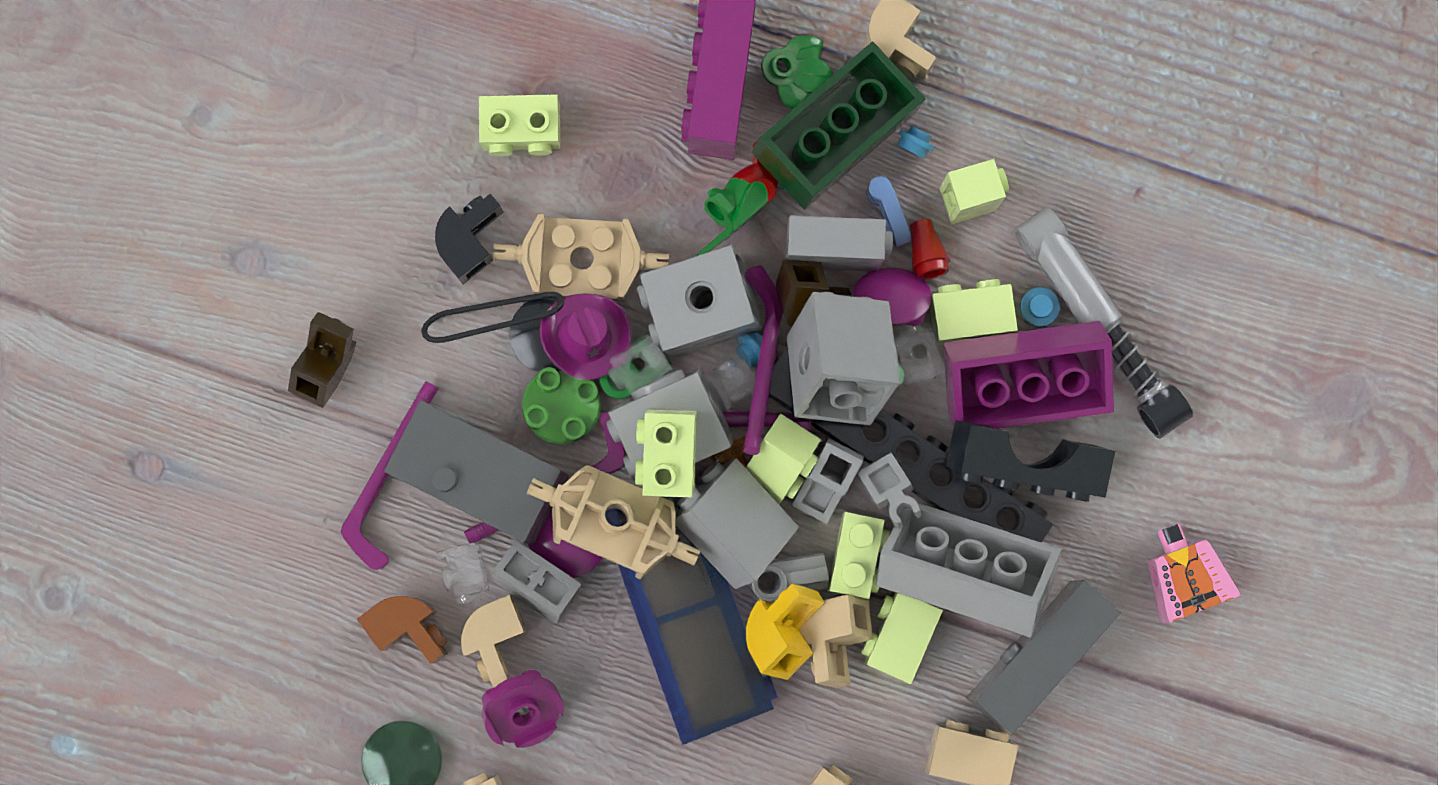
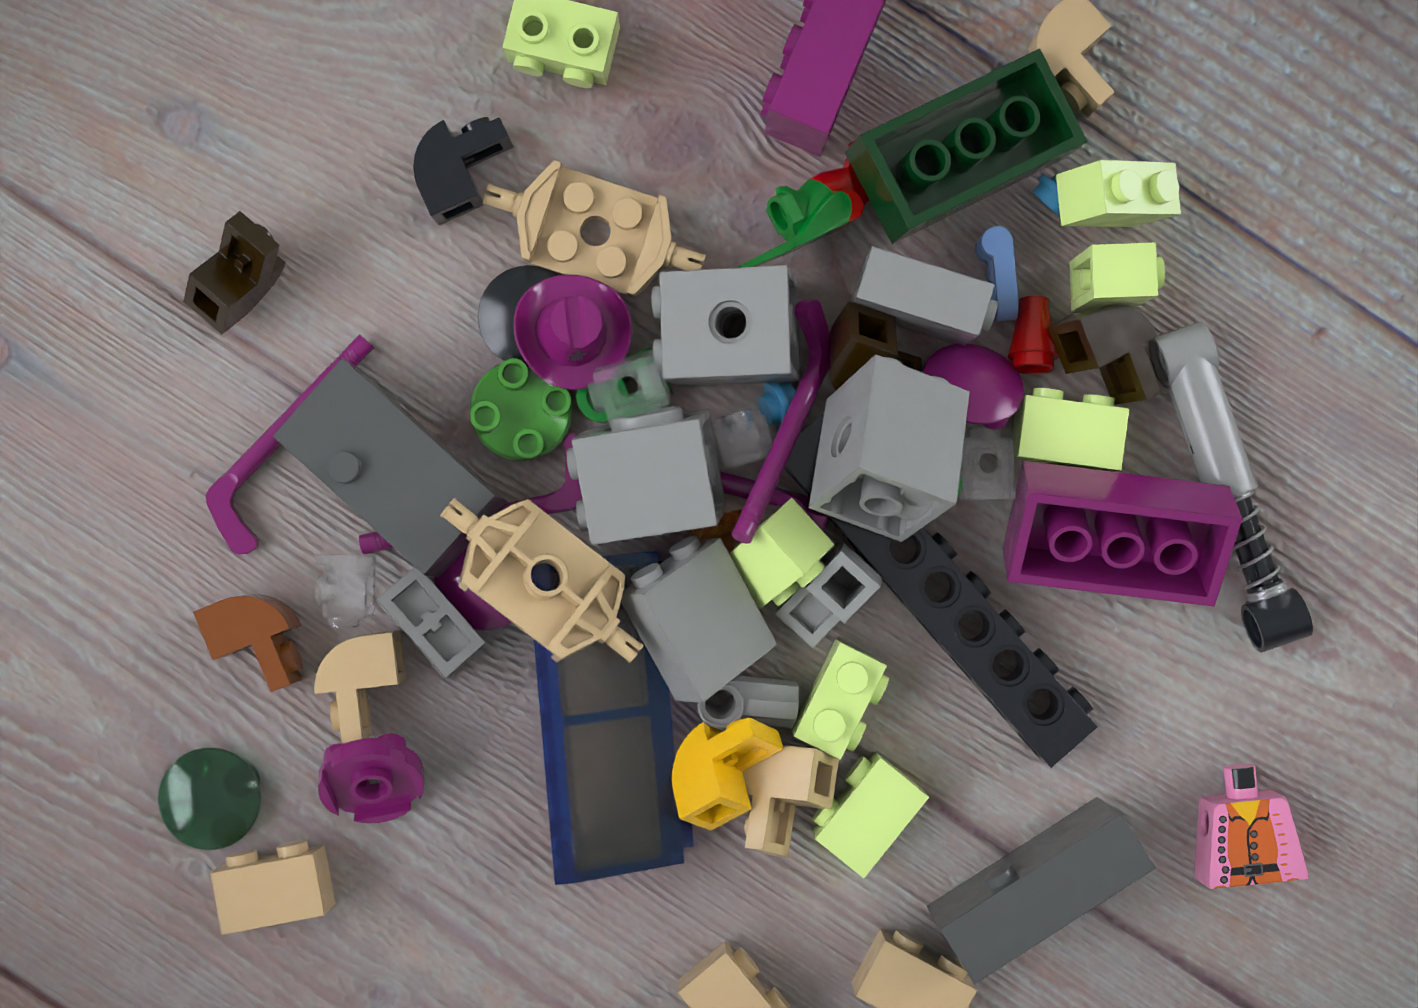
camera: 15 degrees right, 5 degrees up
(559, 306) = (463, 289): black piece -> none
(668, 453) = (632, 513): yellowish green brick -> none
(803, 70) = (939, 63): green plate -> none
(888, 485) = (904, 624): light grey plate -> none
(959, 130) = (1118, 193): none -> yellowish green brick
(969, 568) = (977, 757): light grey brick -> none
(986, 238) = (1114, 343): none -> dark brown brick
(1039, 307) = (1155, 446): dark azure plate -> none
(1072, 467) = (1042, 617): black arch -> none

